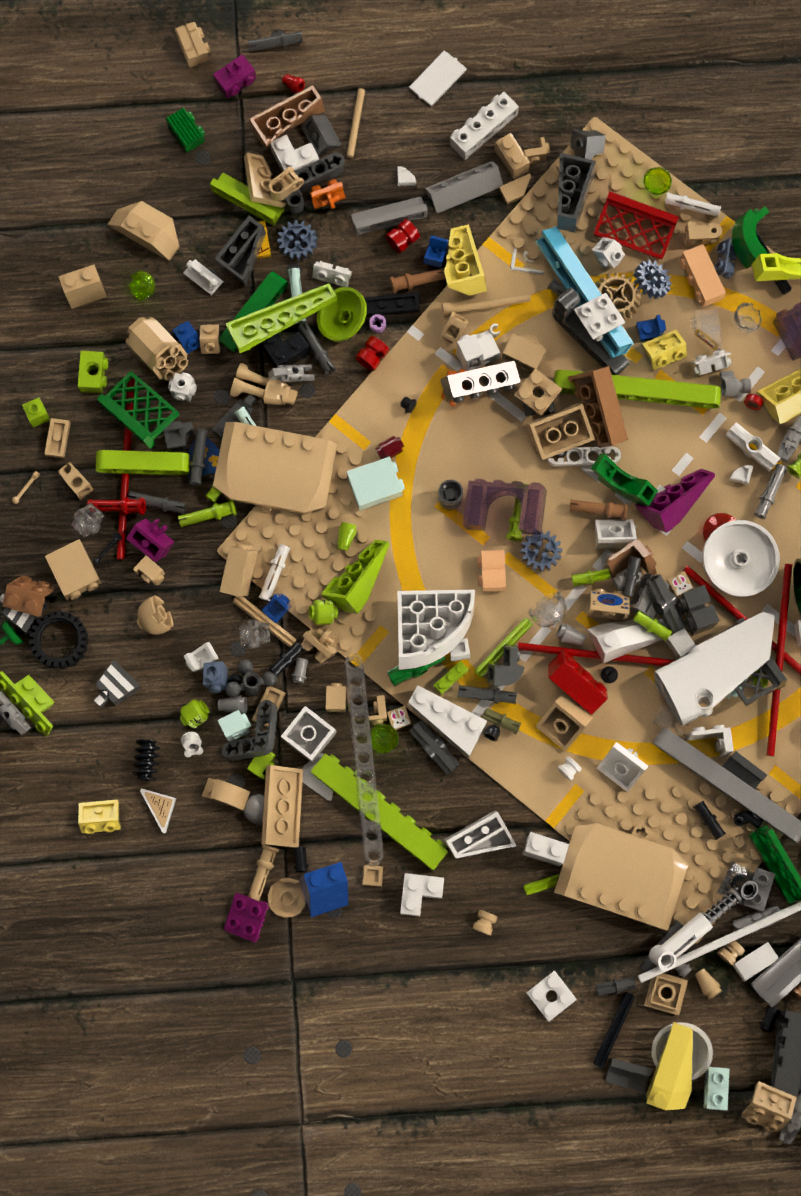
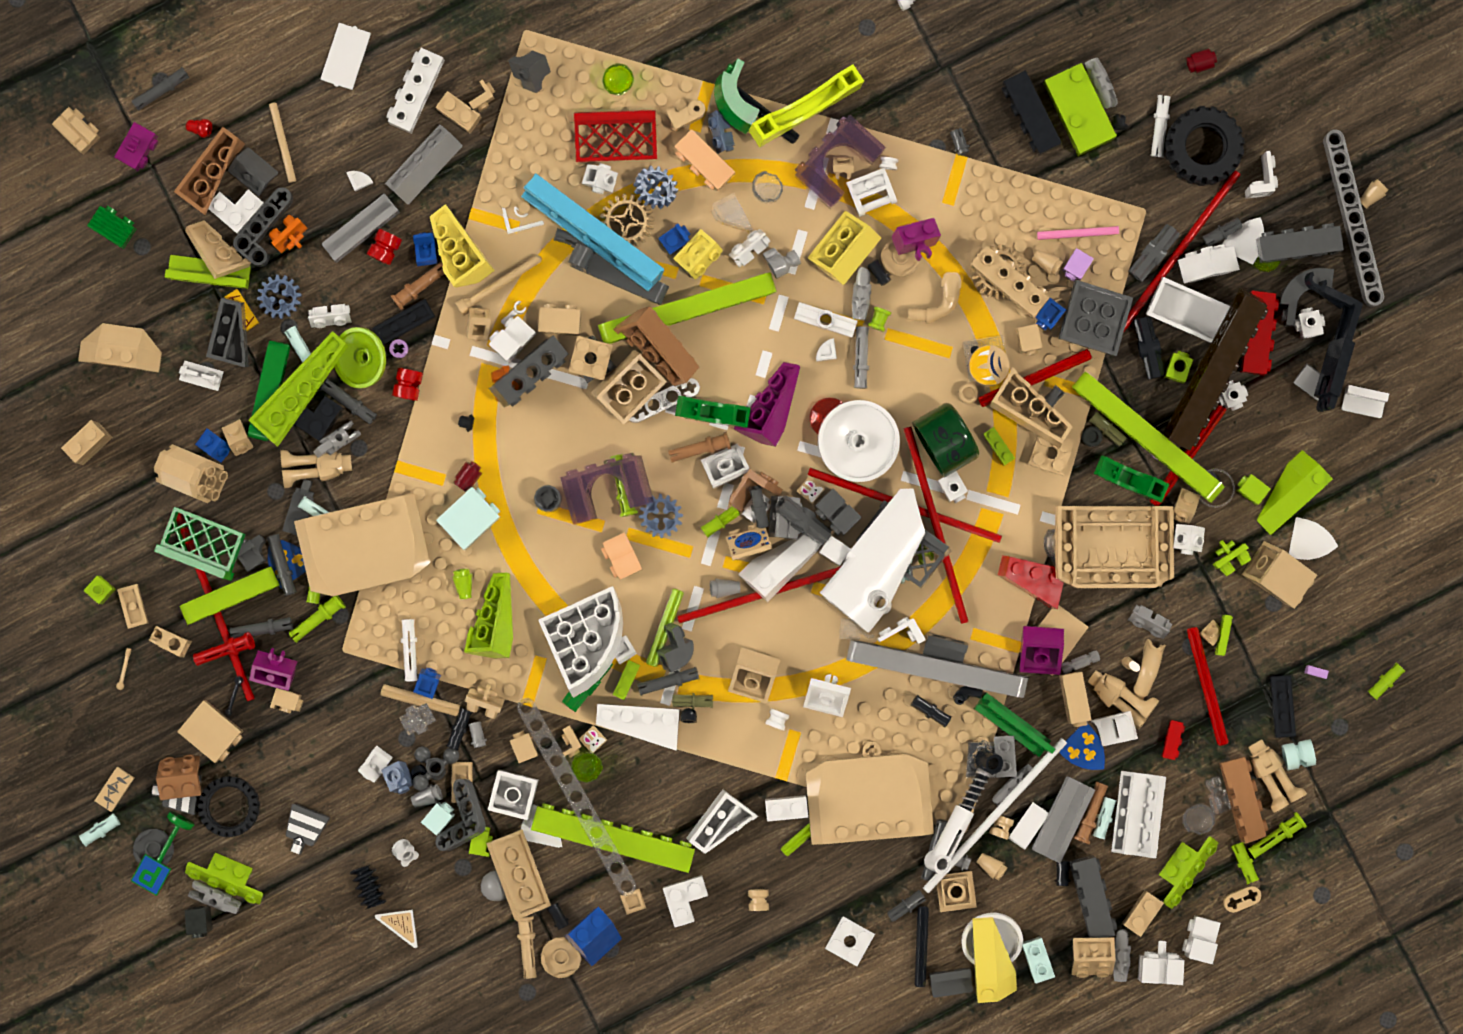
camera: 20 degrees left, 10 degrees up
(88, 520) = (202, 677): clear brick -> none
(89, 361) = (127, 515): lime brick -> none
(99, 816) = (347, 959): light yellow bracket -> none
(142, 285) = (144, 412): clear neon green hair -> none
(153, 616) = (312, 745): tan cylinder -> none
(182, 392) = (240, 504): white brick -> none
(194, 713) = (393, 821): lime head -> none
(226, 793) = (458, 885): tan brick -> none
(238, 570) = (374, 665): tan brick -> none
(246, 917) = (530, 993): magenta hinge -> none
(287, 182) = (243, 246): tan piece -> none
(323, 612) = (474, 669): lime head -> none
(434, 747) = (639, 753): dark grey piece -> none
(515, 190) = (476, 145): tan tile -> none
(549, 611) = (694, 573): clear cylinder -> none
(574, 185) = (536, 126): dark grey wedge -> none
(577, 682) = (749, 633): red wedge -> none
(599, 316) = (619, 257): white hinge -> none
(609, 674) = (778, 609): black piece -> none
(652, 625) = (799, 546): lime pin -> none
(681, 201) = (672, 86): white pin -> none
(753, 402) = (808, 272): red tile -> none

